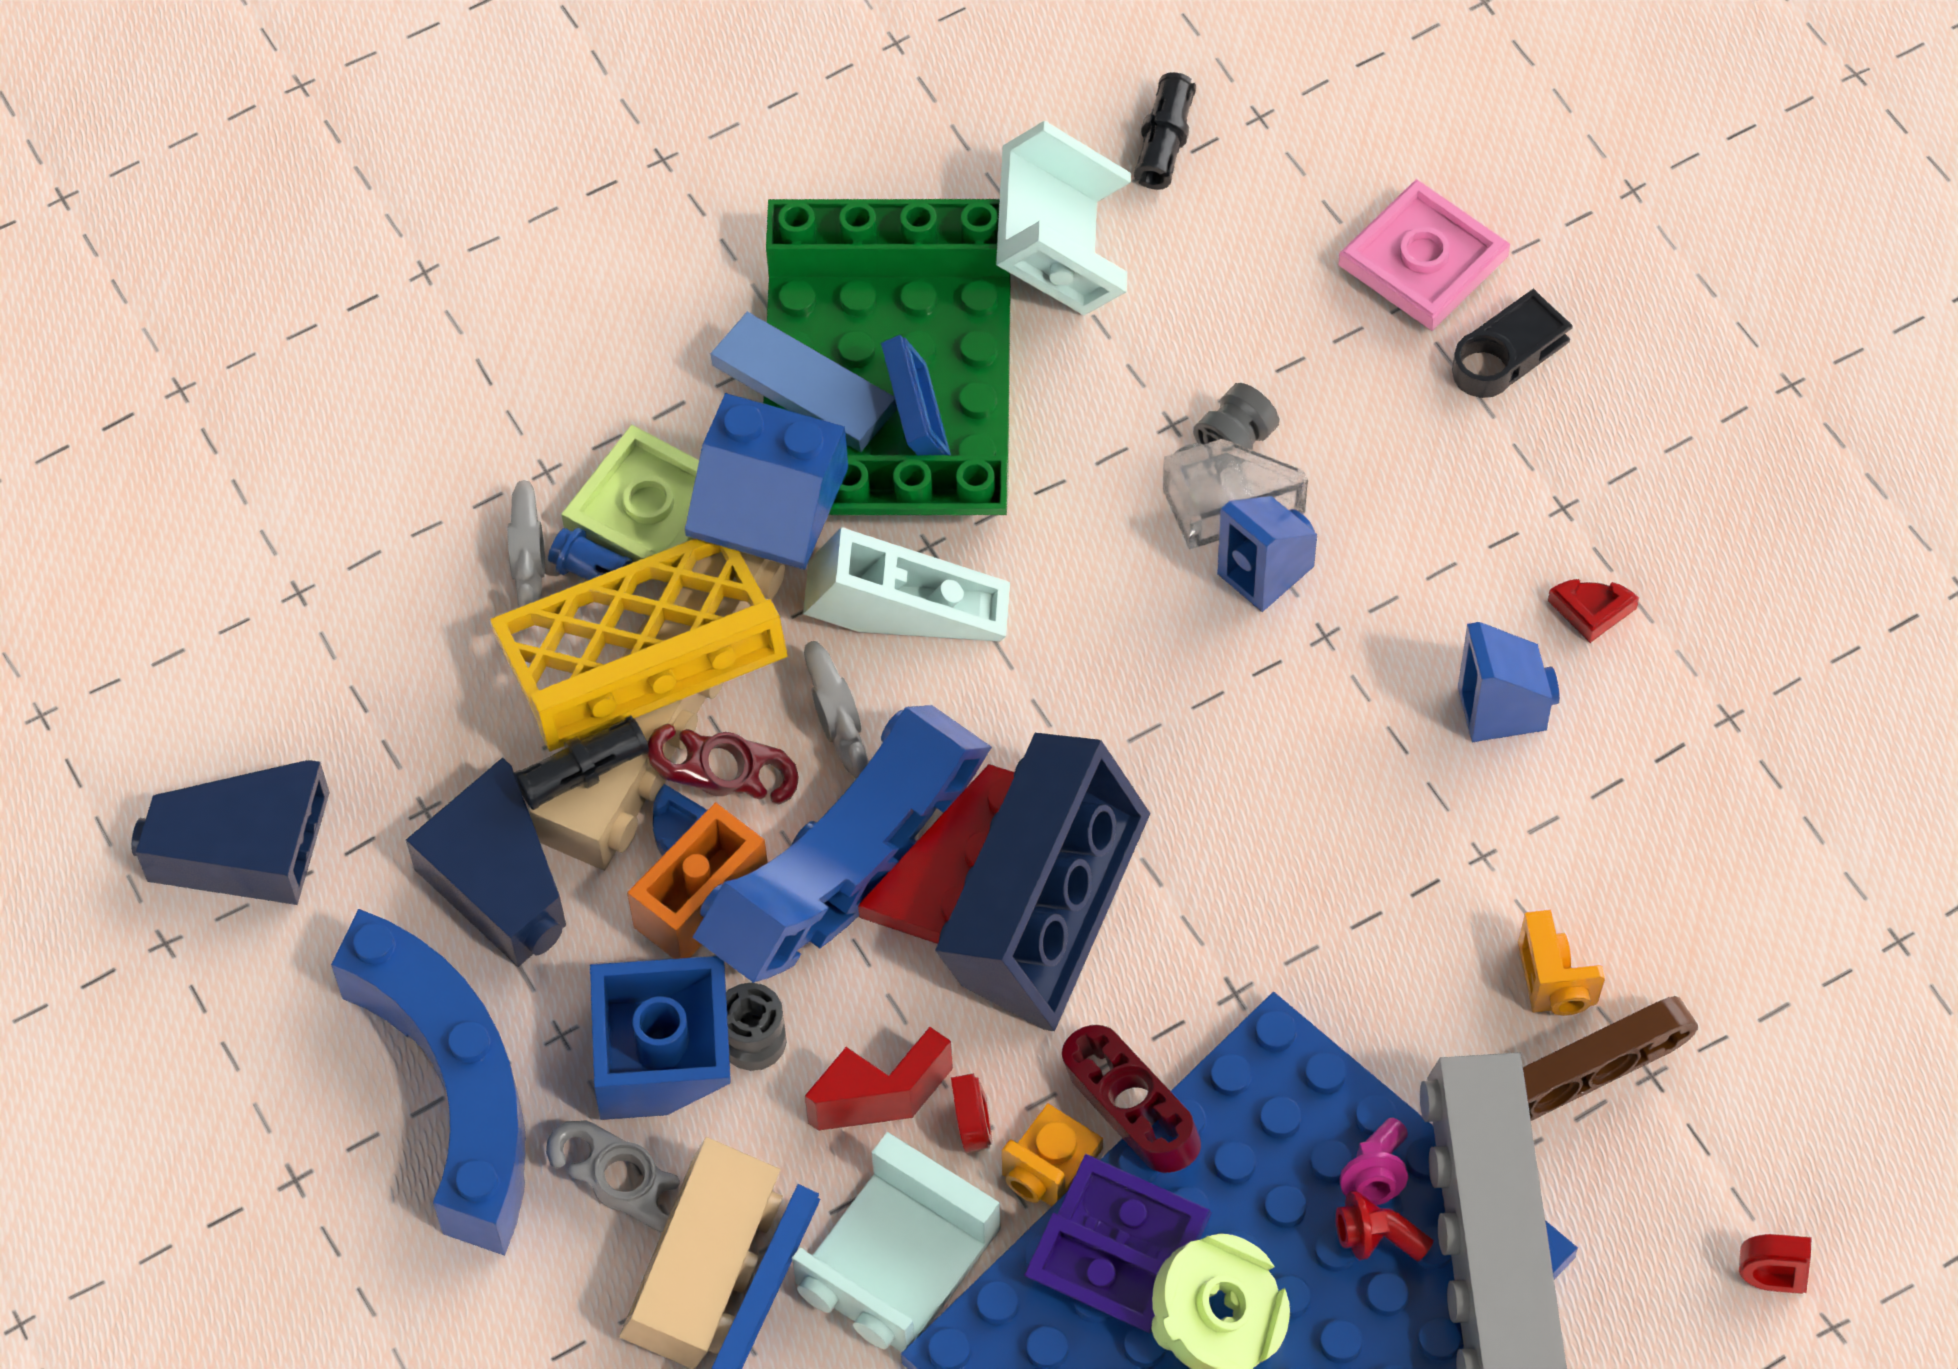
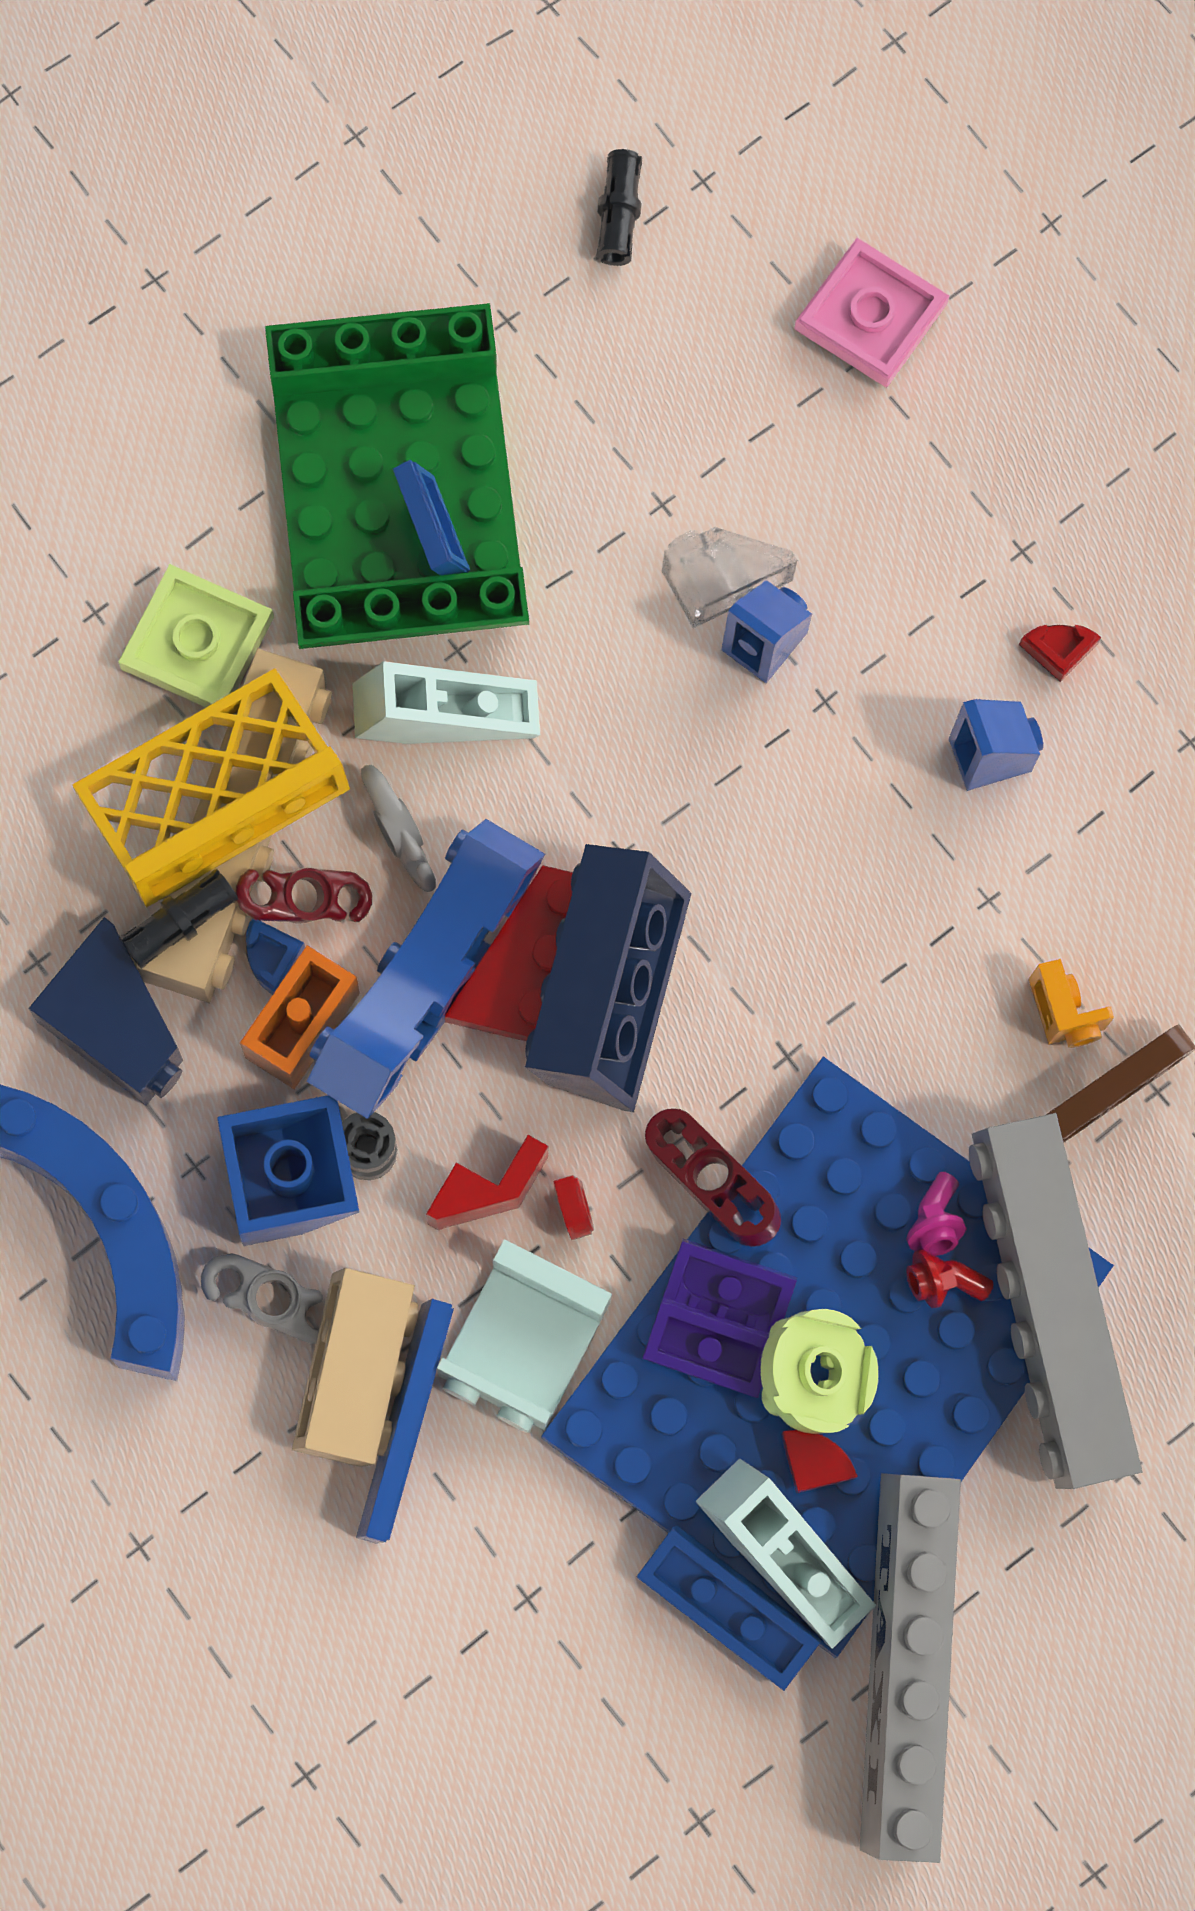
camera: 15 degrees left, 15 degrees up
(526, 545) = (91, 699): light grey piece -> none
(582, 556) = (149, 702): blue pin -> none
(766, 481) = (308, 627): blue slope -> none
(802, 379) = (323, 506): medium blue tile -> none
(1048, 1156) = (646, 1235): light orange bracket -> none
(1050, 217) = (528, 315): light aqua panel -> none
(1242, 418) = (724, 503): dark grey wheel -> none
(1519, 336) = (966, 387): black piece -> none

